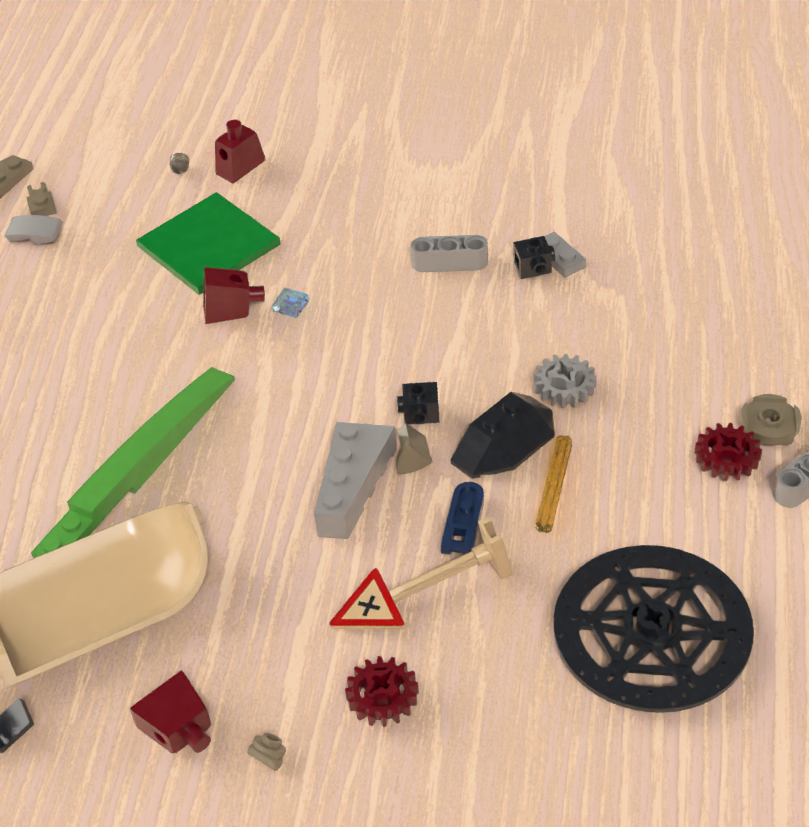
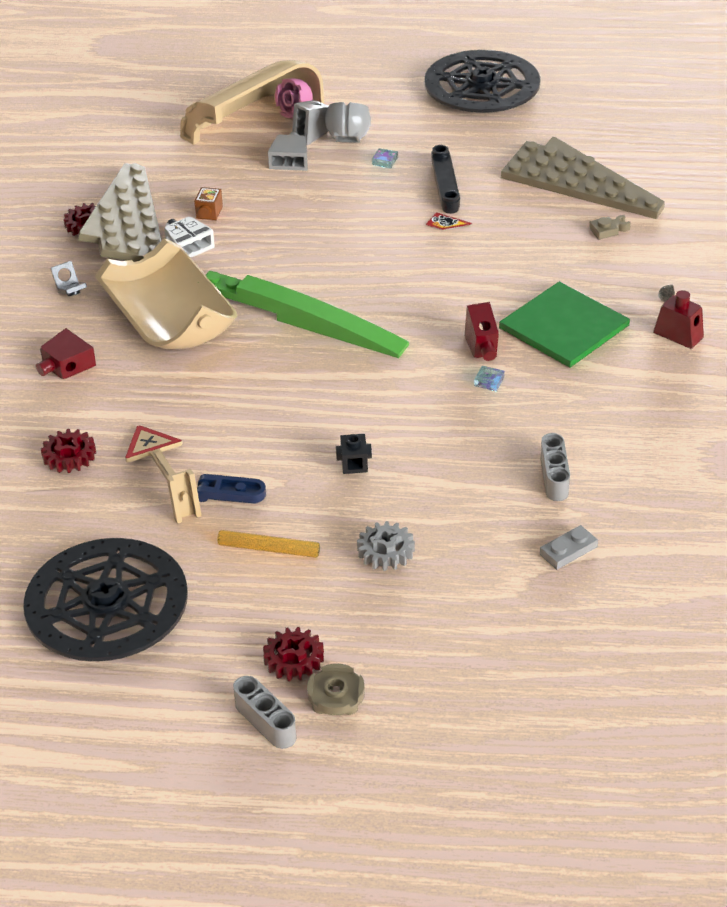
camera: 85 degrees right, 5 degrees down
(33, 227) = (565, 226): light grey slope -> none
(268, 750) = (33, 402): dark tan plate -> none
(352, 469) = (274, 419): light grey wedge -> none
(413, 452) = (306, 454): dark tan tile -> none
(504, 436) = (324, 512): black wedge -> none
(533, 257) = (548, 518): black brick -> none

